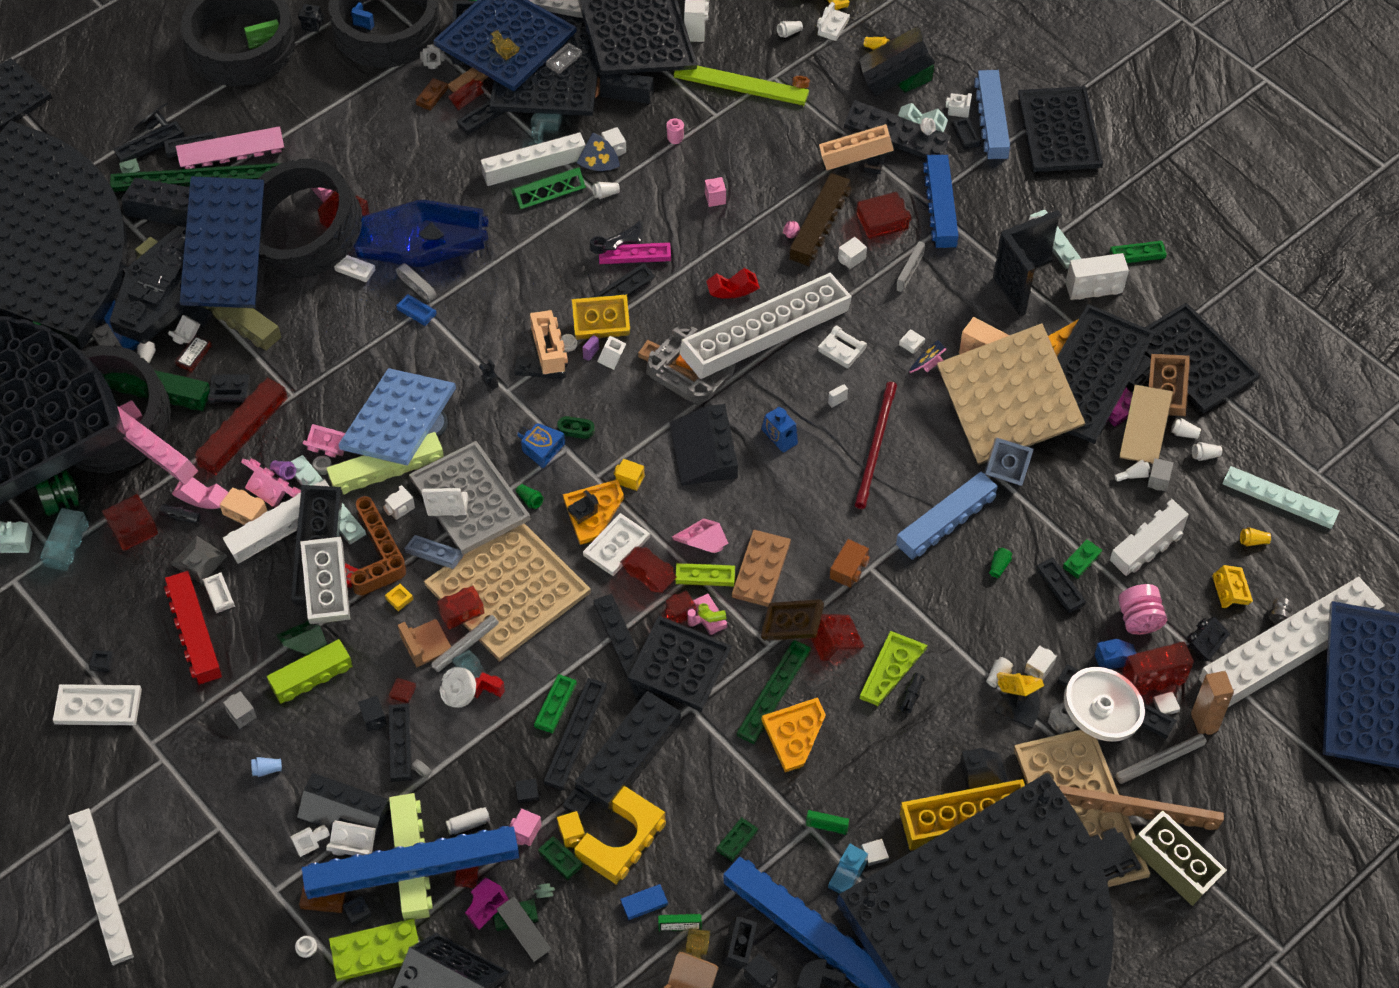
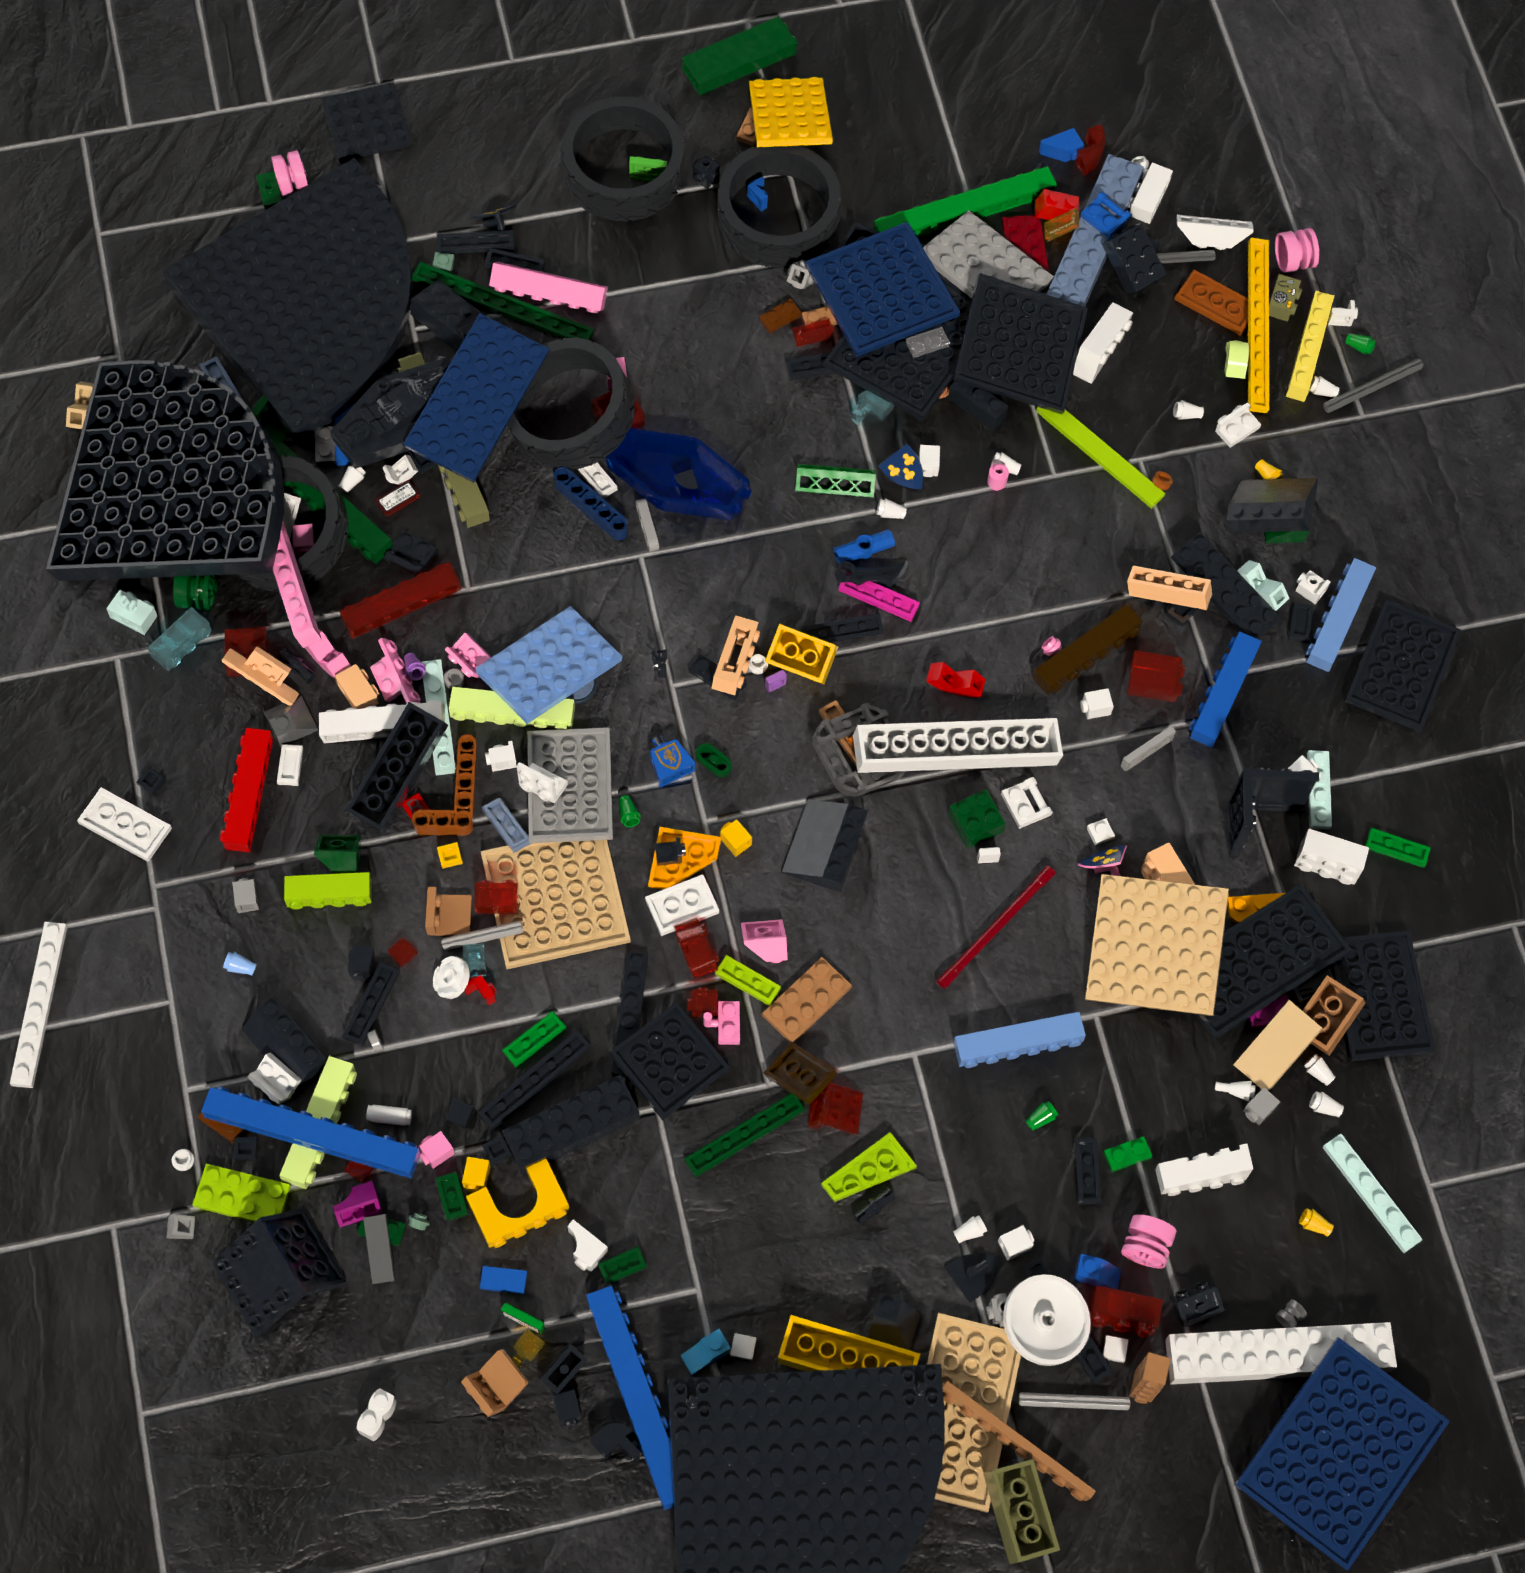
camera: 25 degrees right, 10 degrees up
(156, 525) = (264, 672): none -> light nougat bracket
(306, 840) = (236, 1058): white plate -> none
(325, 580) = (382, 810): white brick -> none
(359, 286) = (593, 511): none -> dark blue beam
(416, 309) = (632, 554): blue tile -> none
(506, 47) = (872, 303): clear yellow plate -> none
(532, 159) = (836, 441): white brick -> none
(601, 223) = (875, 543): none -> blue piece
(611, 352) = (791, 697): white brick -> none
(666, 117) = (1002, 458): none -> white cone
(699, 838) = (589, 1248): none -> white arch
(710, 616) = (725, 1027): lime arm -> none
(715, 192) = (998, 567): bright pink brick -> none
(780, 429) = (908, 861): blue torso -> none
(794, 731) = (738, 1186): light orange plate -> none
(812, 374) = (976, 819): none -> dark green brick
(827, 822) = (715, 1294): green tile -> none
(849, 563) = (891, 1042): dark orange brick -> none
(928, 126) = (1259, 599): white plate -> none
(1008, 461) = (1112, 1015): sand blue brick -> none
(1018, 683) = (979, 1254): yellow bracket -> none
(1115, 854) = (961, 1474): black plate -> none
(1231, 586) = (1259, 1262): yellow bracket -> none

